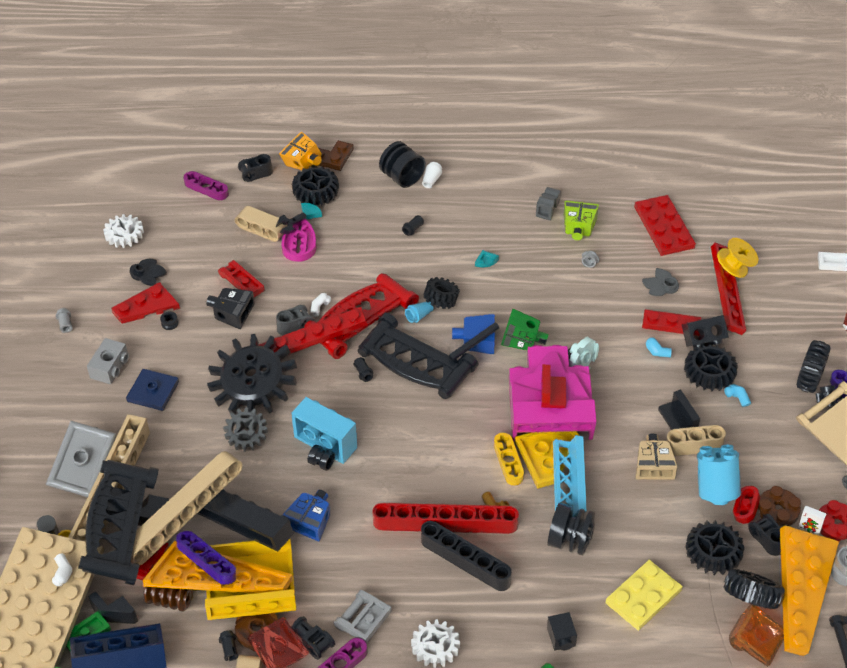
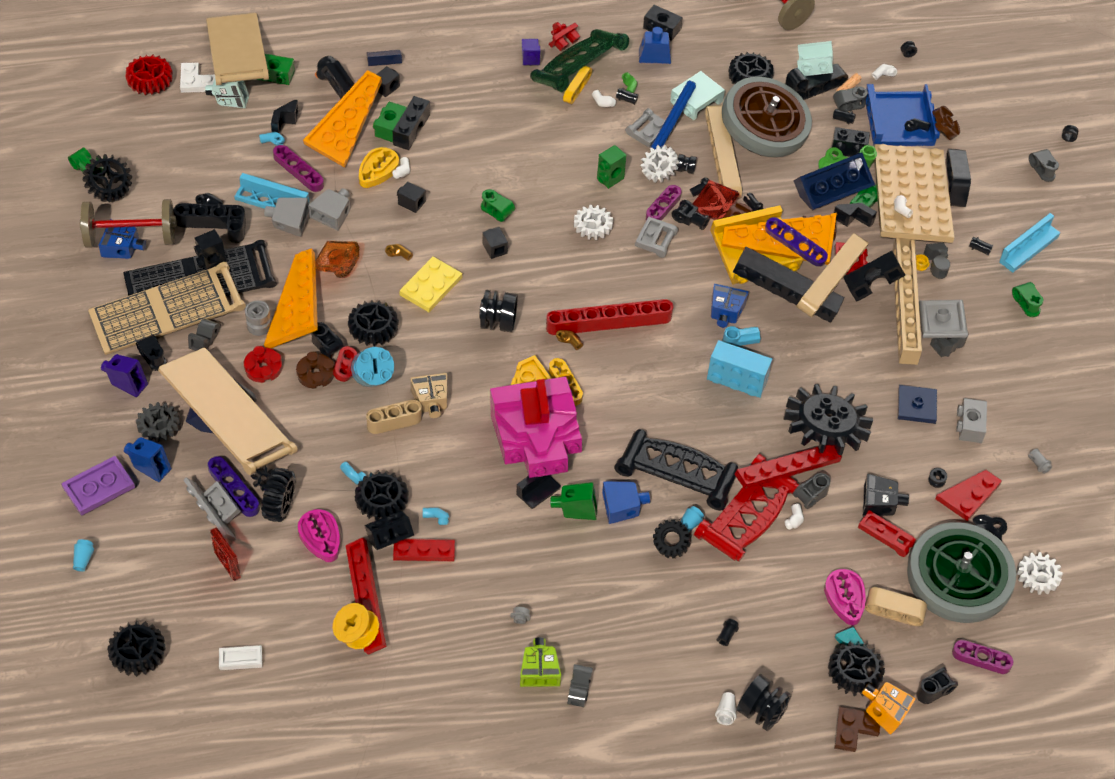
camera: 165 degrees right, 5 degrees up
(117, 562) = (879, 277): black piece -> none
(192, 236) = (961, 572): none -> dark green wheel
(249, 421) = (812, 368): dark grey gear -> none
(289, 222) = (863, 600): black bar -> none
(308, 476) = (740, 337): none -> medium azure piece
(364, 371) = (723, 446): black pin -> none
(471, 563) = (582, 287): black beam -> none
(474, 341) = (623, 475): black bar -> none
(486, 259) = (635, 602): teal tile -> none
(576, 473) = (501, 360): medium azure fence -> none
(583, 352) = (512, 476): light aqua plate -> none
(661, 283) = (441, 597): dark grey plate -> none
(664, 225) = (441, 681): red plate -> none
(679, 412) = (410, 444): black panel -> none
(680, 644) = (398, 250): none -> pearl gold arm
(754, 589) = (339, 273): black gear -> none
(772, 338) = (315, 543): none -> dark pink piece
(811, 520) = (289, 341): white tile -> none

